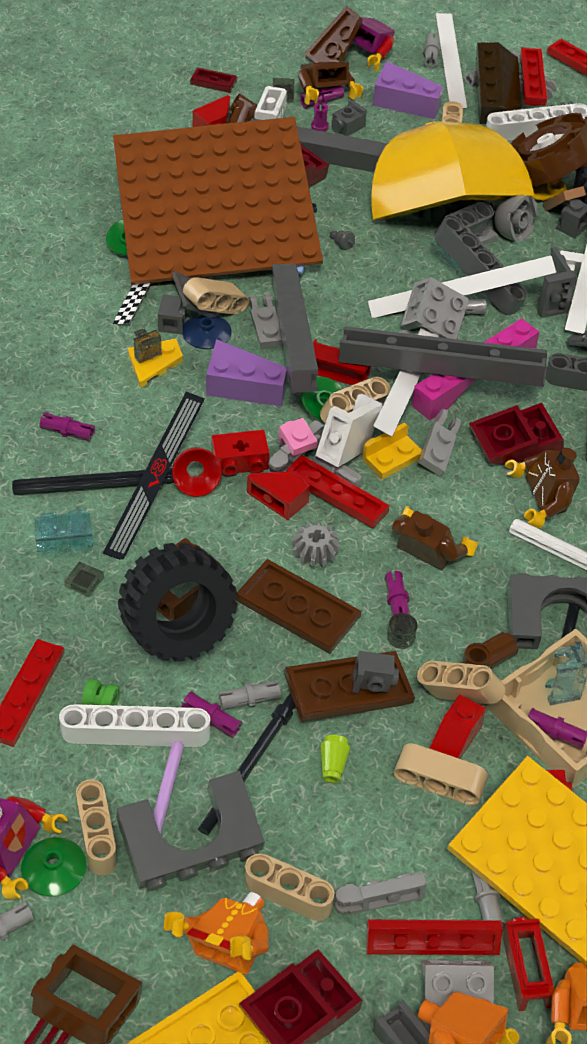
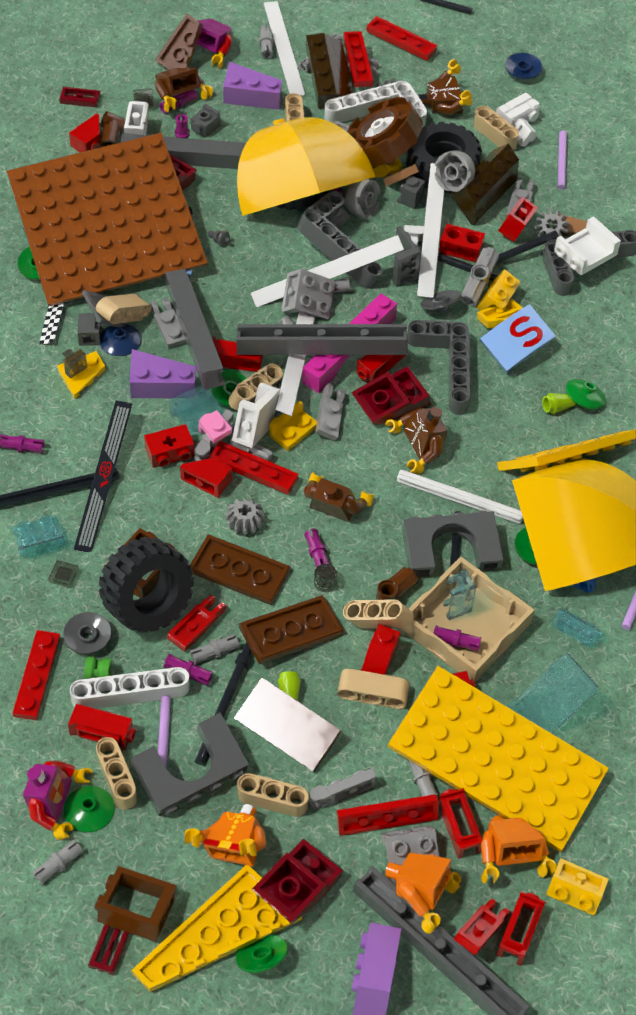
camera: 10 degrees left, 5 degrees up
(83, 761) = (98, 724): none -> red window
(94, 642) = (87, 624): none -> dark grey dish
(202, 483) = (142, 477): red piece -> none
(232, 660) = (195, 623): none -> red hinge
(275, 411) = (192, 406): none -> clear light blue hinge
(324, 801) = (288, 724): none -> tile
(374, 672) = (309, 616): dark grey brick -> none
(505, 395) = (374, 366): none -> red window

